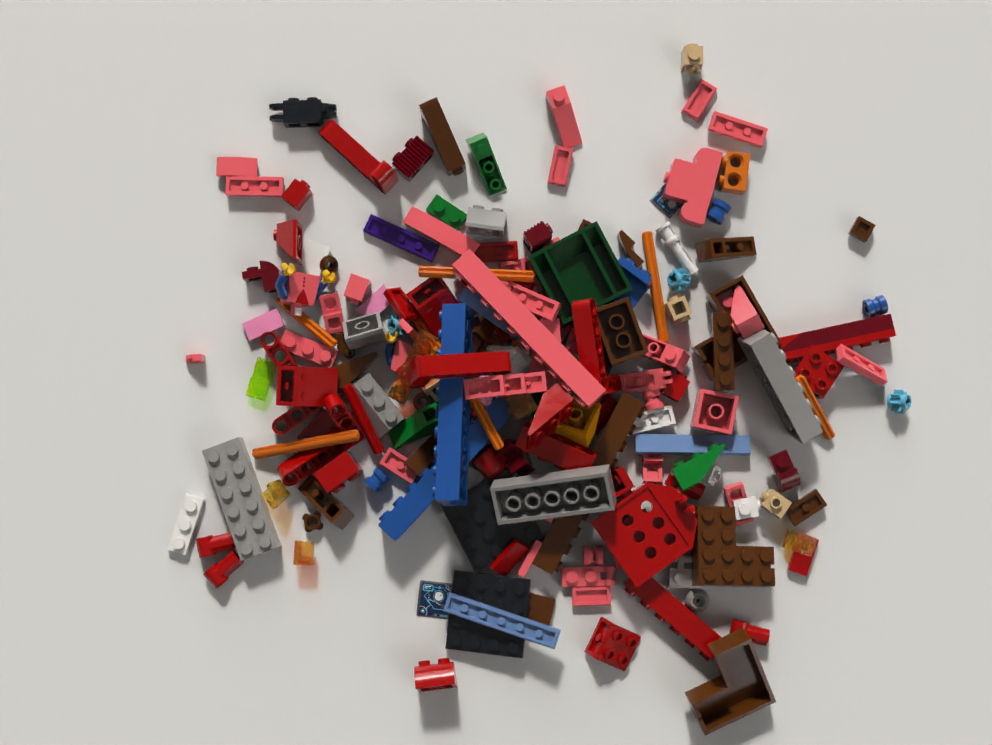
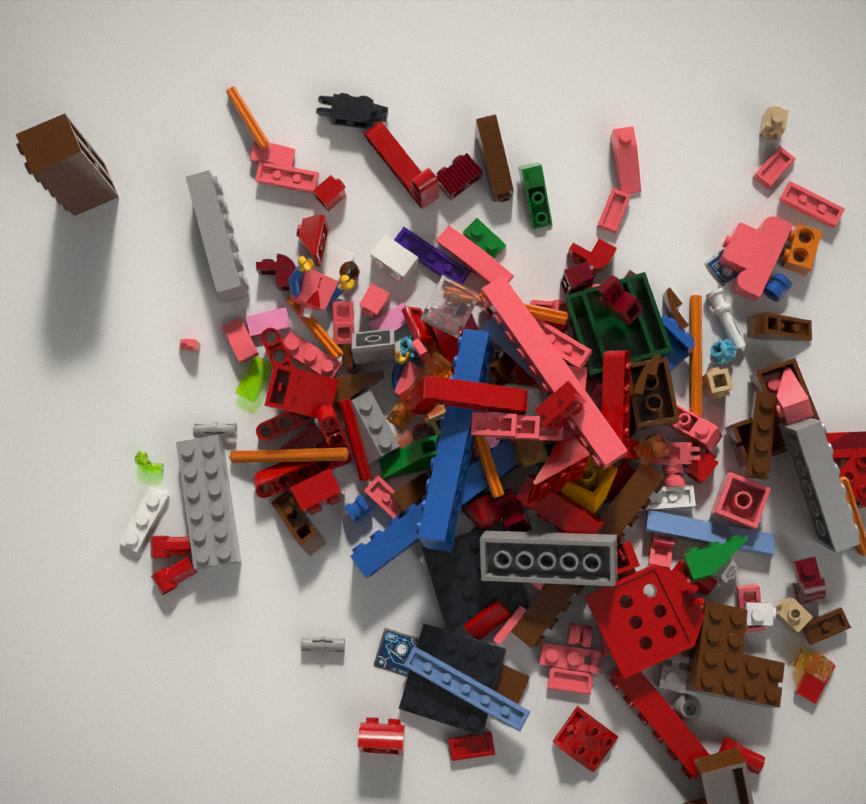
camera: 20 degrees right, 5 degrees down
(50, 216) = (66, 165): none -> reddish brown brick
(177, 475) = (146, 466): none -> clear neon green arm
(201, 255) = (217, 236): none -> light grey brick
(205, 134) = (248, 118): none -> orange axle
(234, 432) = (205, 430): none -> light grey pin
(241, 346) = (240, 340): none -> coral slope
(276, 493) = (246, 503): clear yellow bracket -> none
(304, 553) = (264, 573): clear orange panel -> none
(307, 521) = (275, 537): reddish brown plate -> none
(367, 245) = (393, 258): none -> white brick
(368, 605) = (323, 644): none -> light grey pin
(426, 284) = (450, 306): none -> clear slope
(485, 222) = (524, 255): light grey slope -> none
(497, 251) = (533, 288): red tile -> none
(515, 668) = (471, 746): none -> red tile
(540, 361) = (560, 406): none -> red bracket
(552, 215) = (598, 257): none -> red brick
(577, 253) = (618, 301): none -> dark red brick
(614, 313) = (648, 372): none -> reddish brown slope
(628, 379) = (651, 447): none -> clear orange brick

